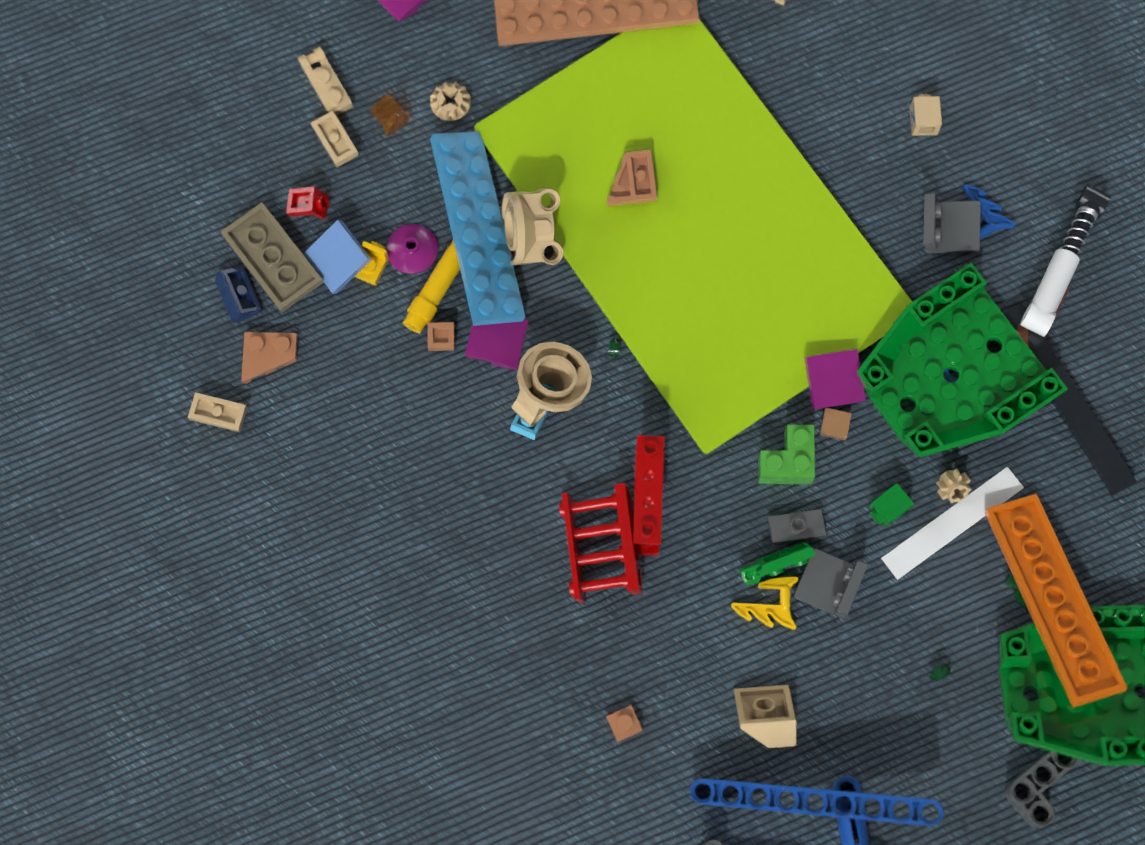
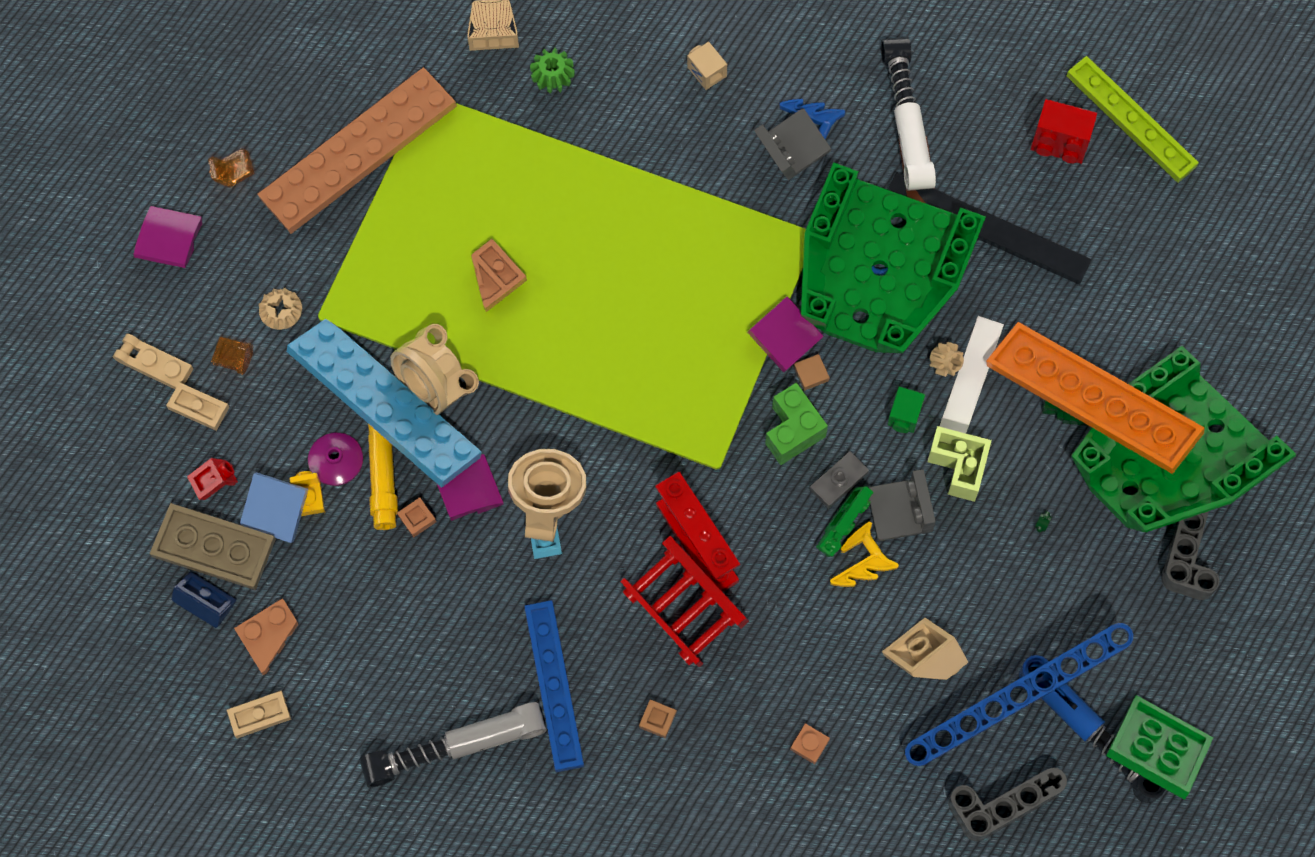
camera: 35 degrees left, 5 degrees down
(406, 552) = (520, 723): none -> piece
(455, 541) = (554, 686): none -> blue plate
(517, 622) = (657, 719): none -> medium nougat plate
(614, 347) = (577, 430): dark green piece -> none
(799, 34) = (552, 79): none -> bright green gear
(912, 575) = (965, 455): none -> yellowish green brick

